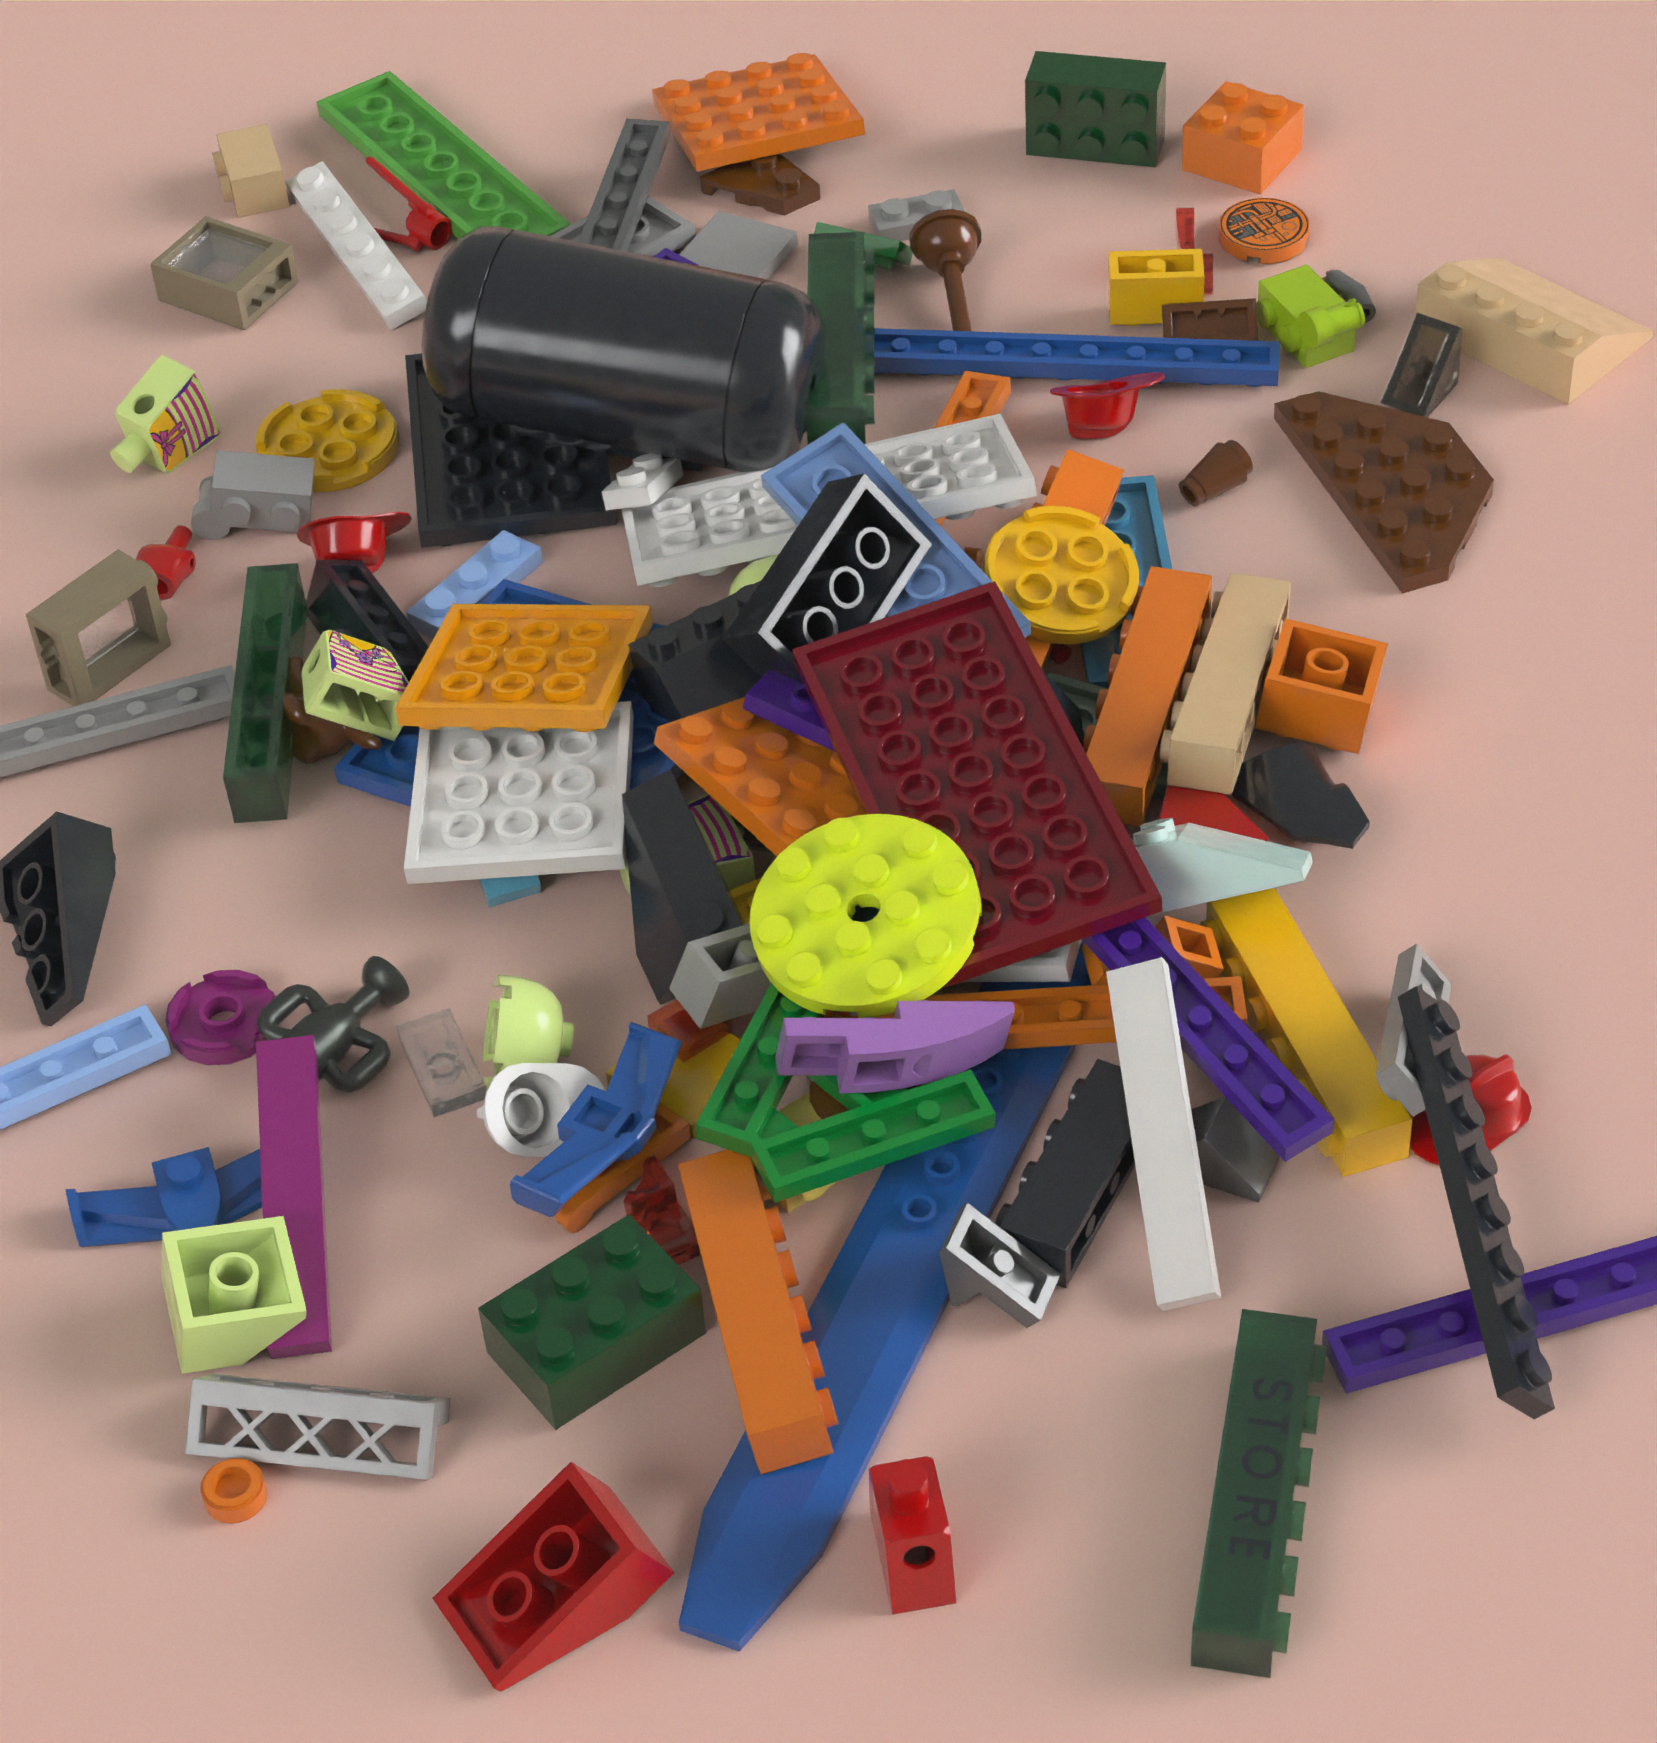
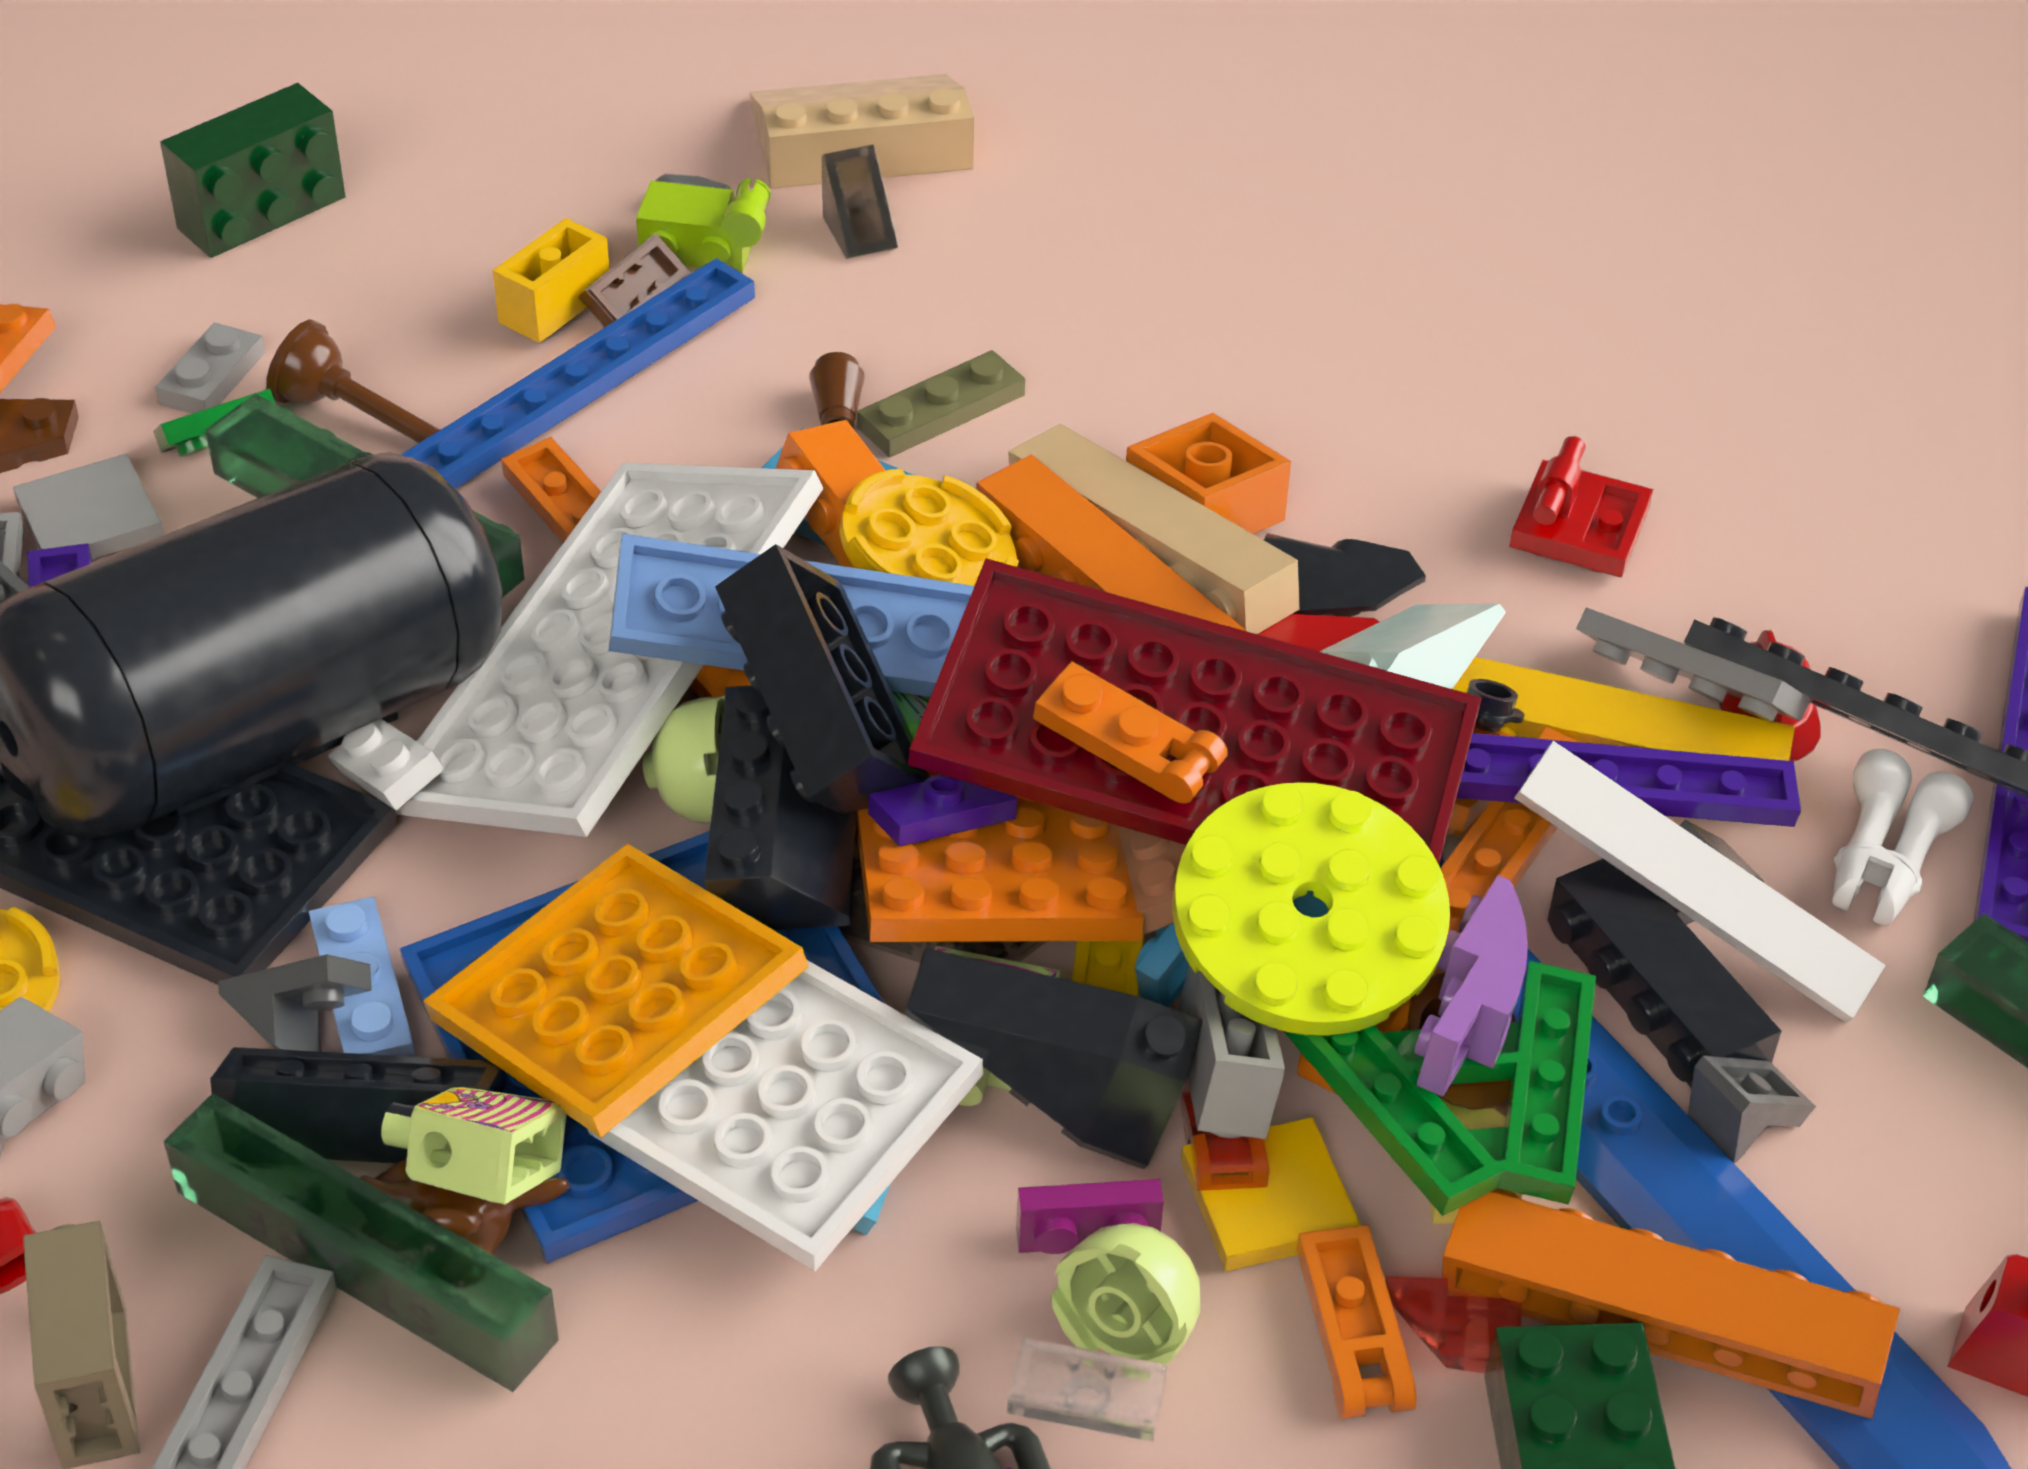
camera: 60 degrees left, 0 degrees up
(353, 536) = (193, 1043): red piece -> none
(414, 563) = (286, 999): none -> dark grey slope
(529, 1102) = (1247, 1338): white piece -> none
(578, 990) = (1062, 1216): none -> magenta plate
(602, 1123) = (1345, 1280): blue plate -> none
(910, 734) = (1129, 733): none -> orange plate
(1103, 407) = (665, 396): red piece -> none
(1185, 240) = (501, 226): clear red slope -> none
(1223, 932) = (1496, 704): none -> black plate
(1242, 137) = (405, 120): orange brick -> none
(1264, 230) = (534, 186): orange tile -> none
(1277, 527) = (940, 403): none -> olive plate
(1318, 1245) = (1881, 787): none -> white piece
(1395, 477) = (958, 304): reddish brown plate -> none
(1549, 900) = (1580, 514): none -> red plate

